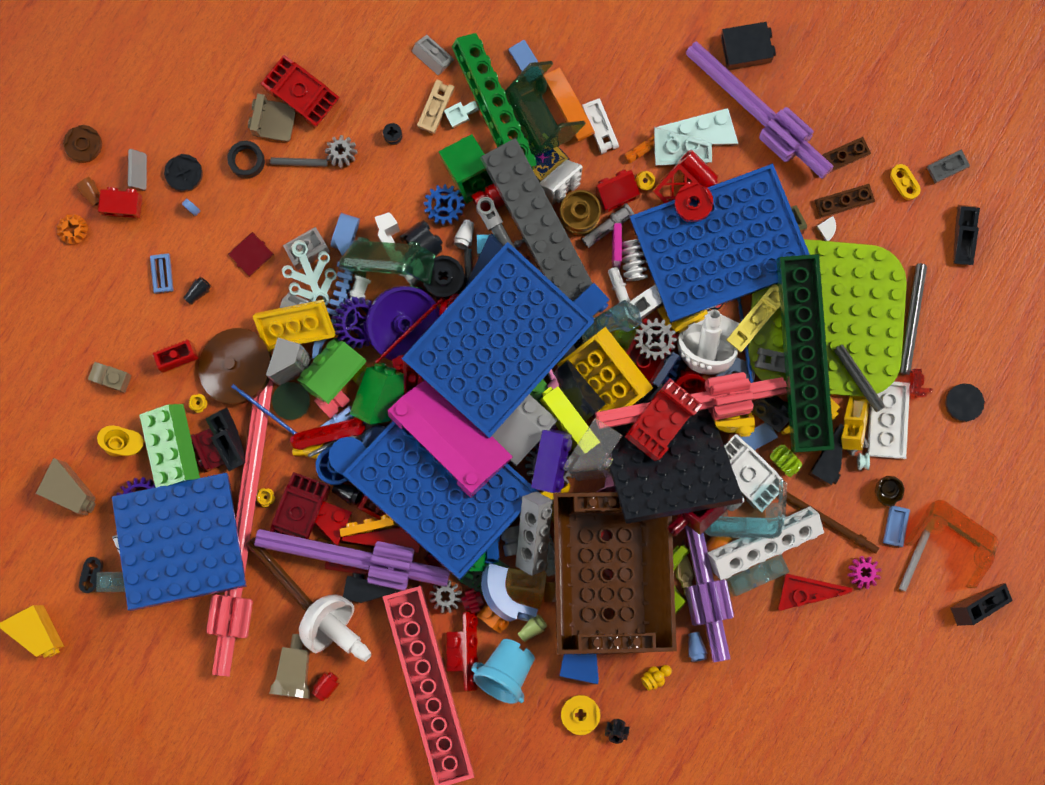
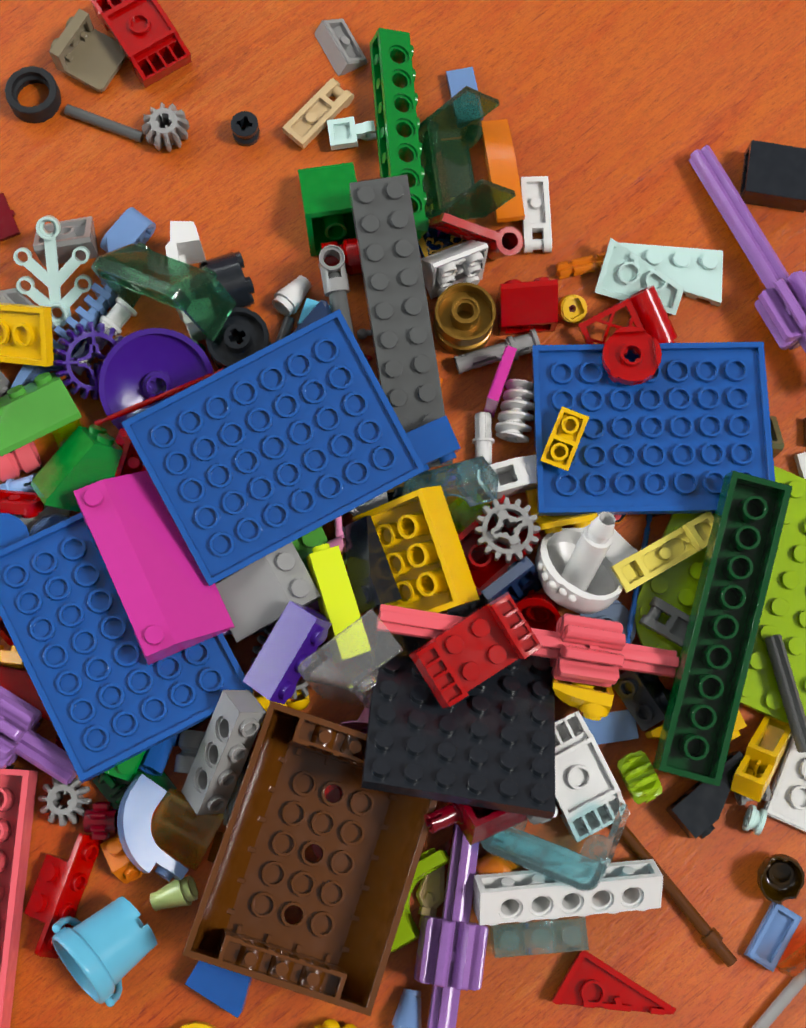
camera: 15 degrees right, 5 degrees down
(450, 198) = (278, 232): blue gear -> none
(582, 155) = (501, 242): none -> red piece
(670, 270) = (564, 438): none -> yellow slope
(866, 580) = (713, 995): dark pink gear -> none

